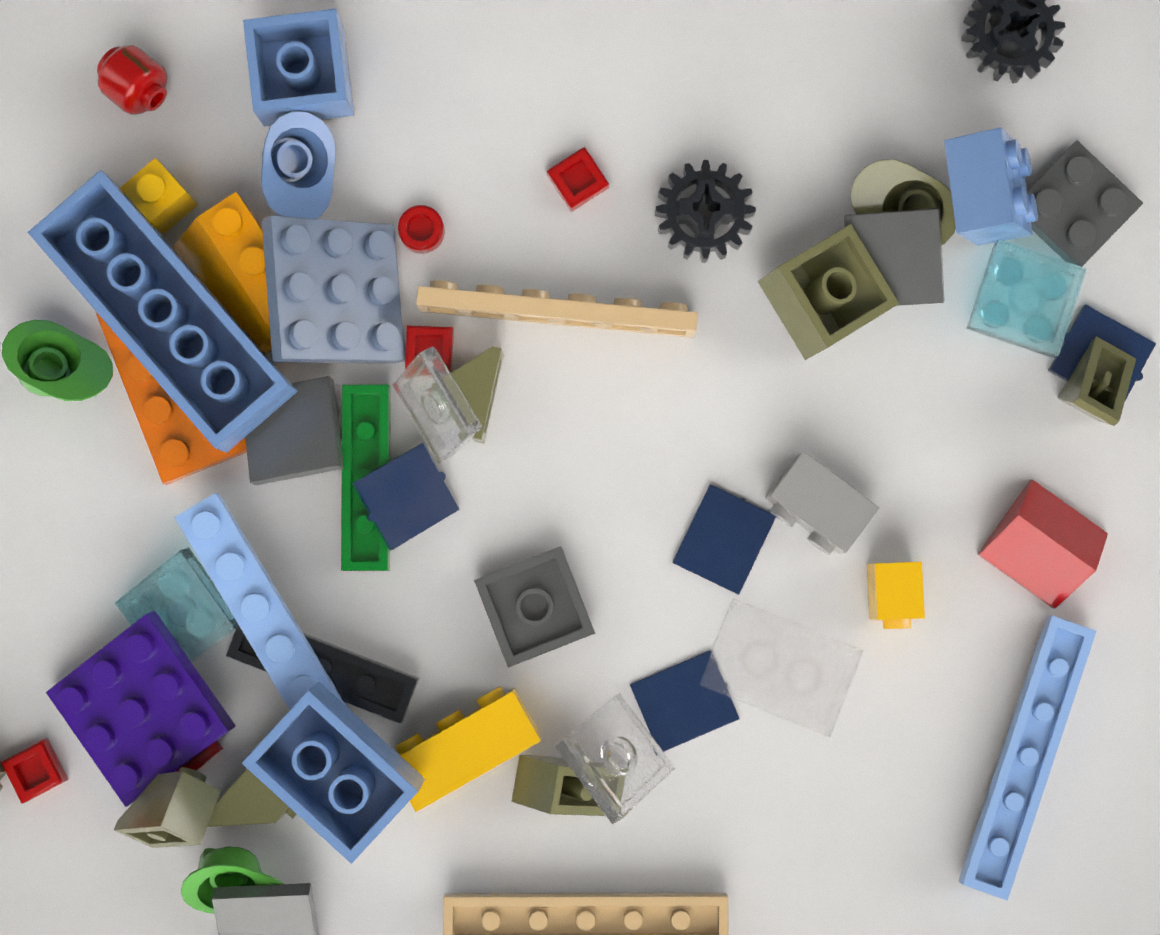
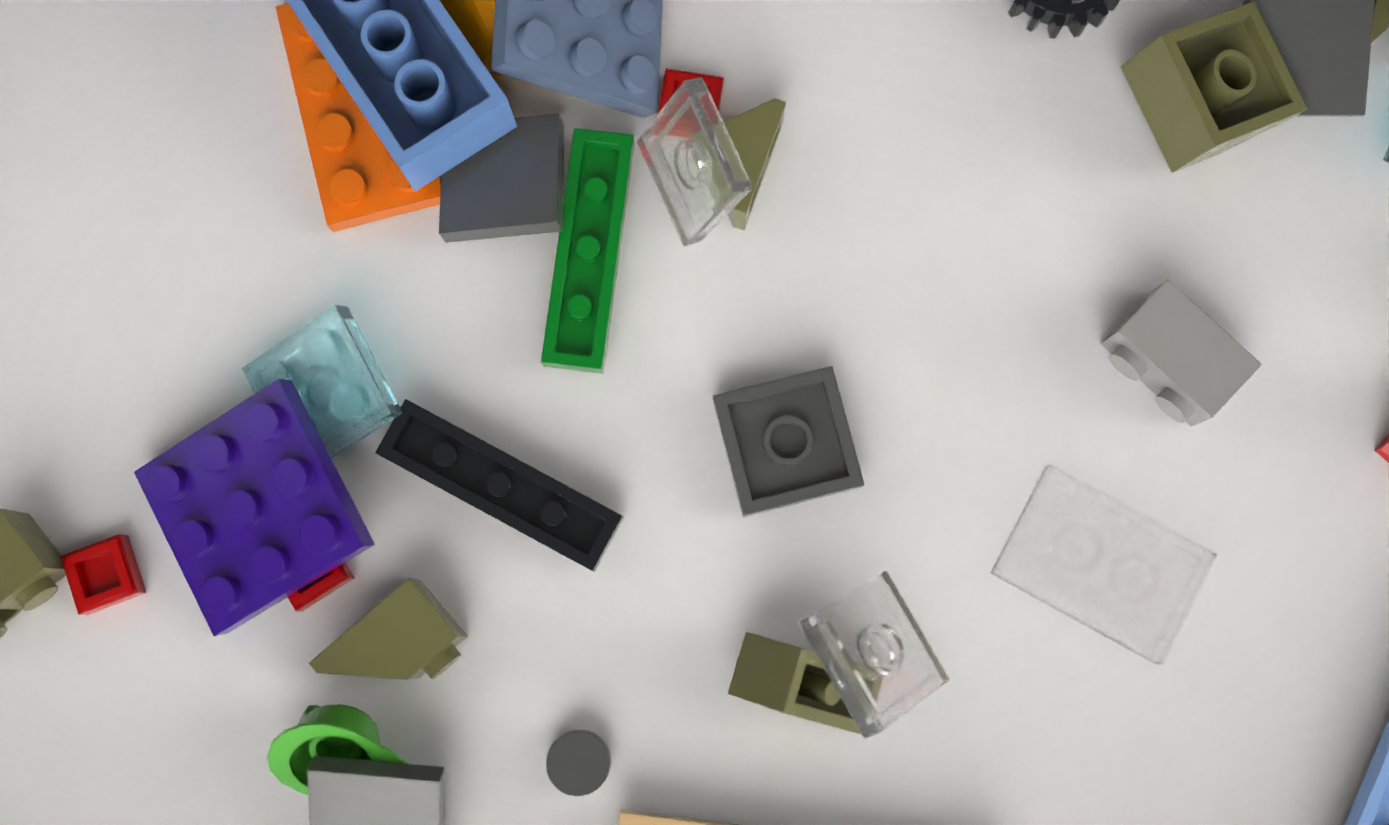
camera: 10 degrees right, 5 degrees down
(56, 361) = (212, 53): bright green piece -> none
(171, 810) = (271, 645): olive slope -> none
(253, 599) = (437, 420): light blue plate -> none
(334, 772) = (496, 614): medium blue brick -> none
(405, 496) = (637, 278): dark blue piece -> none
(409, 864) = (578, 762): none -> dark grey tile
(469, 745) = (672, 613): yellow brick -> none
(537, 307) = (879, 75): tan plate -> none
(679, 707) = (961, 600): dark blue window -> none
(724, 539) = (1043, 389): dark blue window -> none
(895, 593) = (1268, 482): yellow brick -> none

